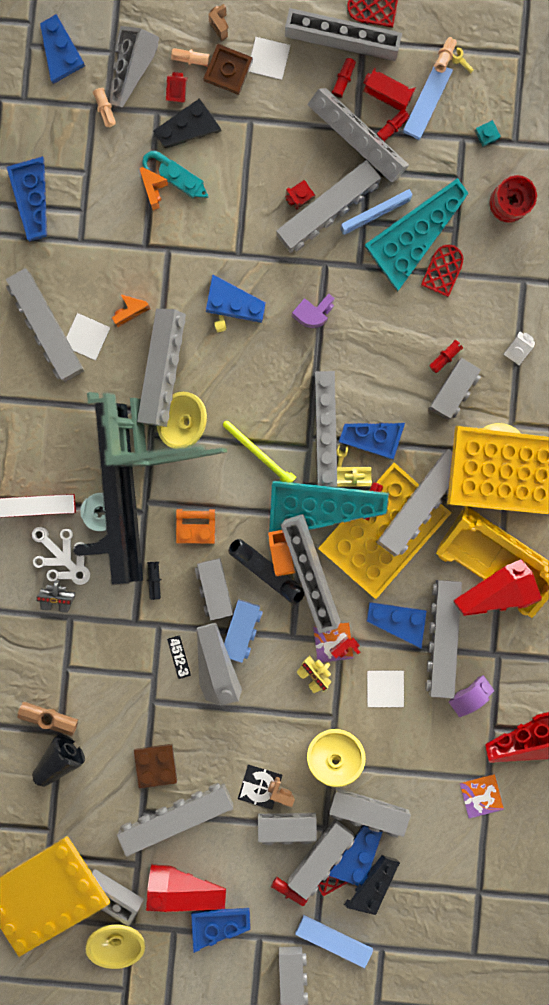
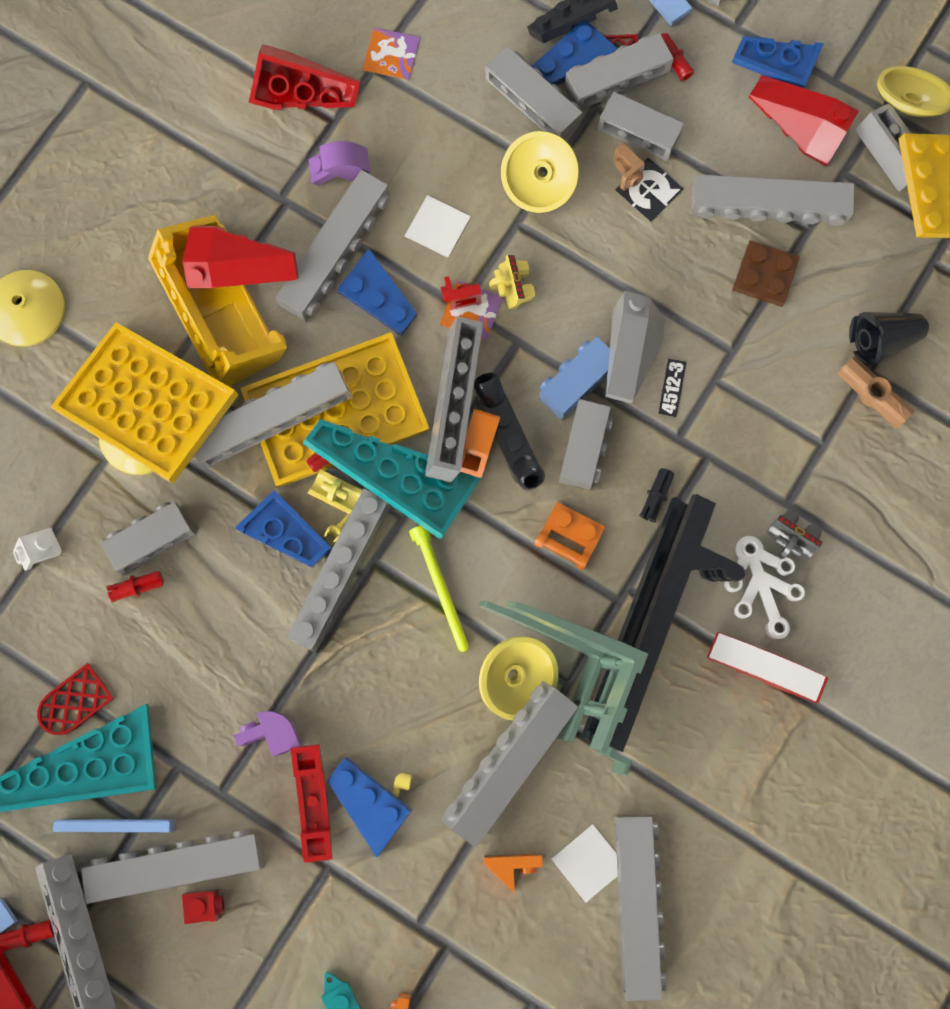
camera: 150 degrees left, 10 degrees down
(88, 512) = (701, 618): light aqua plate -> none
(266, 284) = (312, 803): none -> red slope

